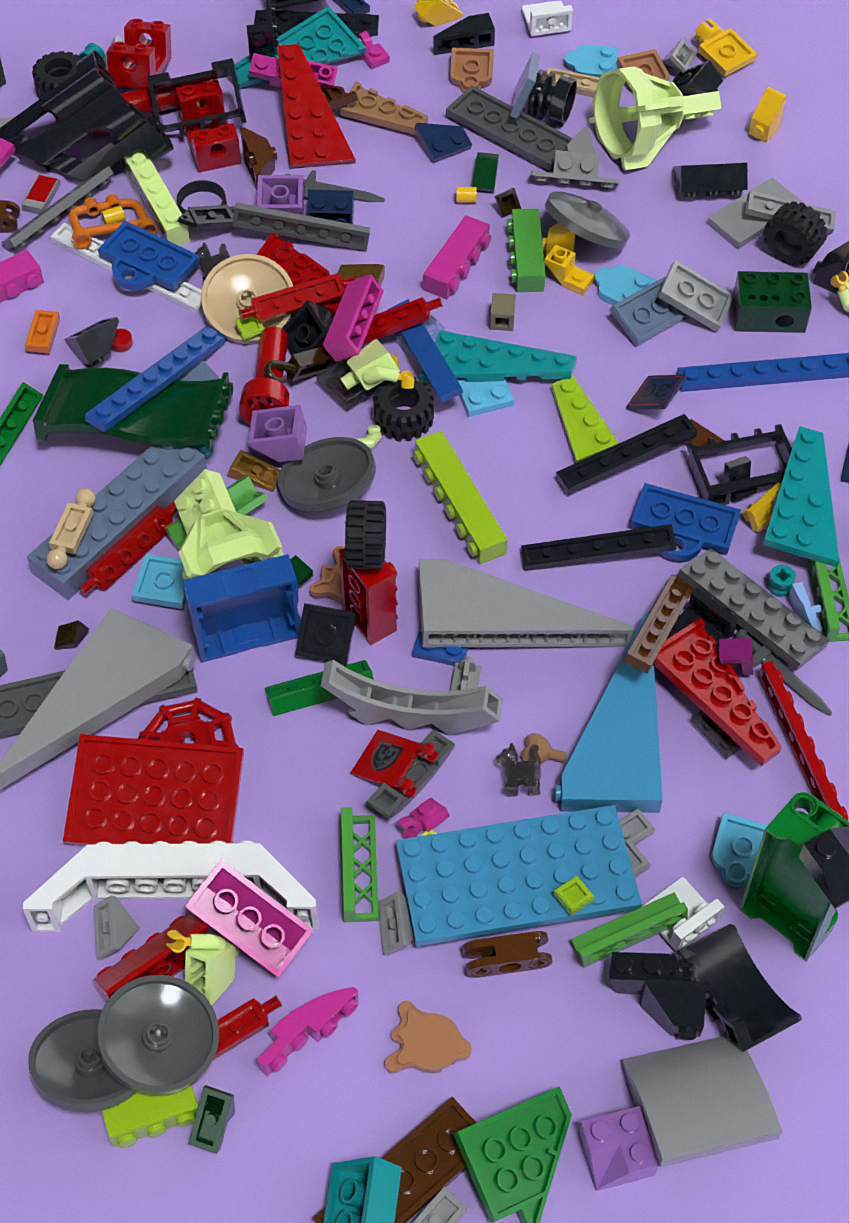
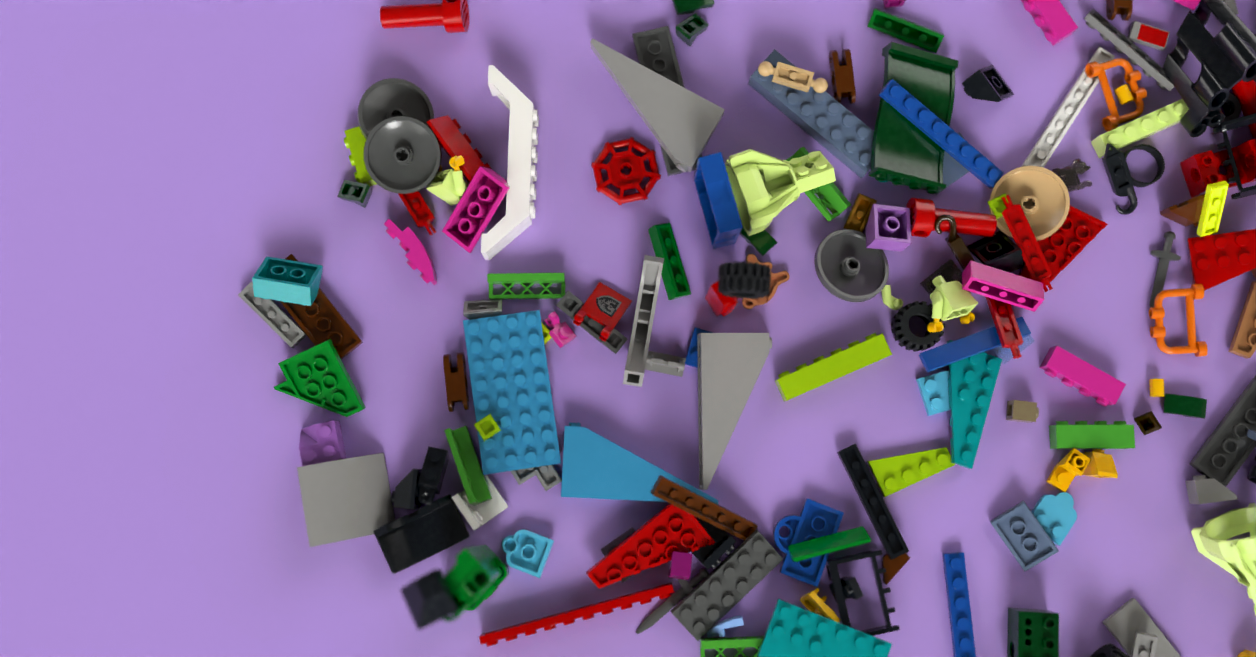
camera: 90 degrees right, 25 degrees up
(42, 331) = (997, 47): orange plate -> none
(63, 486) = (842, 76): none -> reddish brown piece
(70, 634) = (716, 86): dark brown slope -> none
(112, 926) = (489, 127): light grey slope -> none
(122, 340) = (990, 108): red tile -> none
(129, 549) = (787, 123): red plate -> none
(146, 258) = (1072, 122): blue plate -> none
(152, 792) = (580, 148): red plate -> none
(160, 582) = (761, 141): medium azure plate -> none
(260, 132) = (1212, 208): none -> neon yellow tile
(281, 193) = (1140, 229): medium lavender slope -> none
(301, 226) = (1109, 245): dark grey plate -> none
(325, 633) = (706, 262): black plate -> none
(331, 205) = (1131, 271): dark blue slope -> none
(362, 270) = (1061, 296): pearl gold slope -> none
(418, 160) = (1158, 331): none -> orange bar
(426, 1041) = (402, 327): nougat tile -> none
(442, 140) = (1221, 369): dark blue wing -> none
(520, 773) = (591, 399): clear smoke animal -> none
(545, 750) = (611, 414): medium nougat rock -> none
(576, 167) = (1186, 485): light grey bracket -> none
(587, 219) = (1119, 488): dark grey dish -> none
(598, 547) = (783, 471): black tile -> none
(656, 392) = (935, 531): dark blue piece -> none
(687, 494) = (828, 544): none -> green slope
(695, 295) = (1038, 575): light grey plate -> none
(711, 179) = (1182, 606): black slope -> none
(776, 585) = (749, 609): teal wheel -> none

